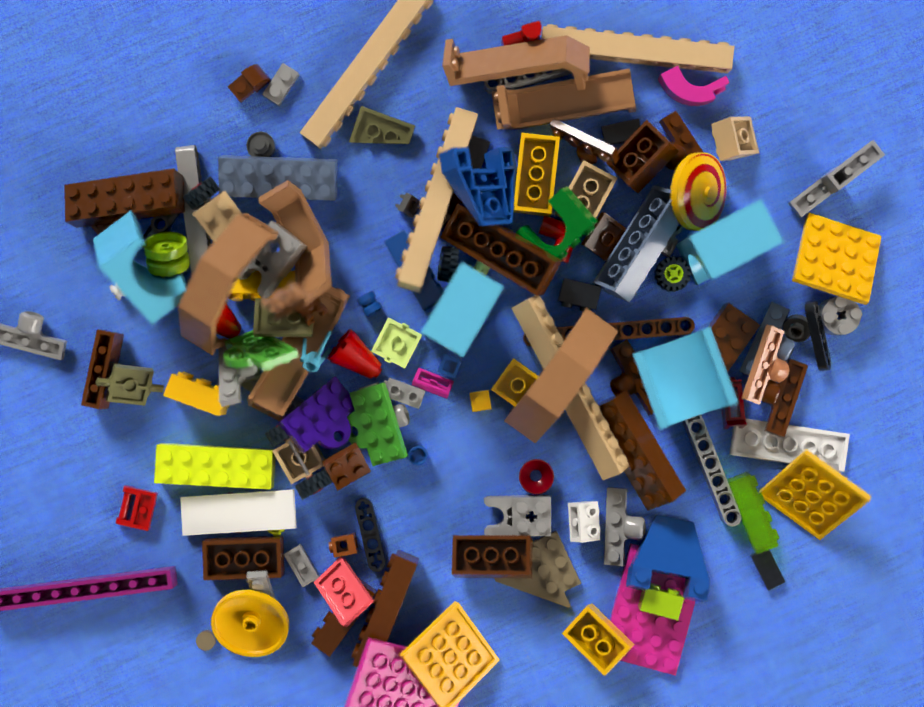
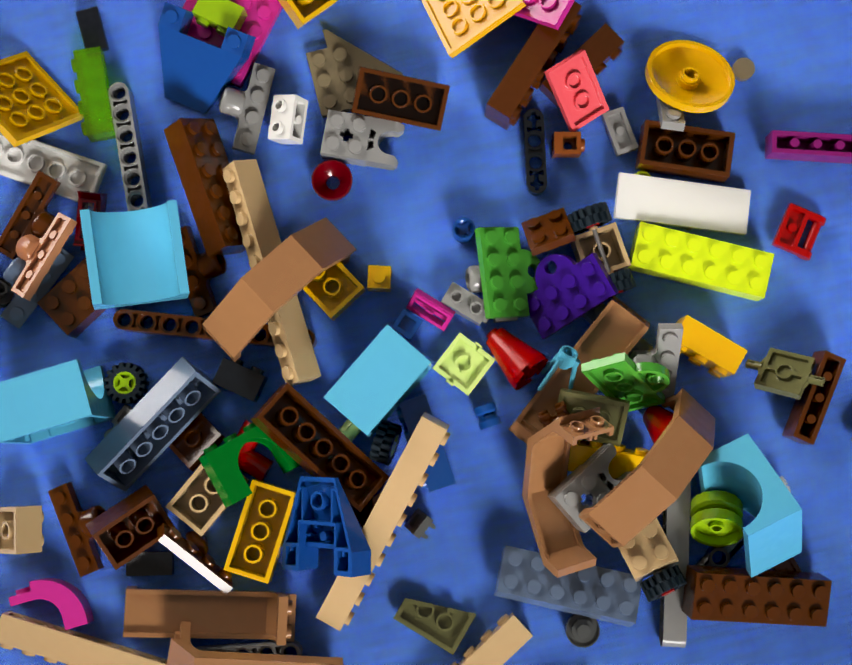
camera: 170 degrees left, 5 degrees down
(477, 149) = (324, 576): black tile -> none
(698, 191) = (73, 472): yellow dish -> none

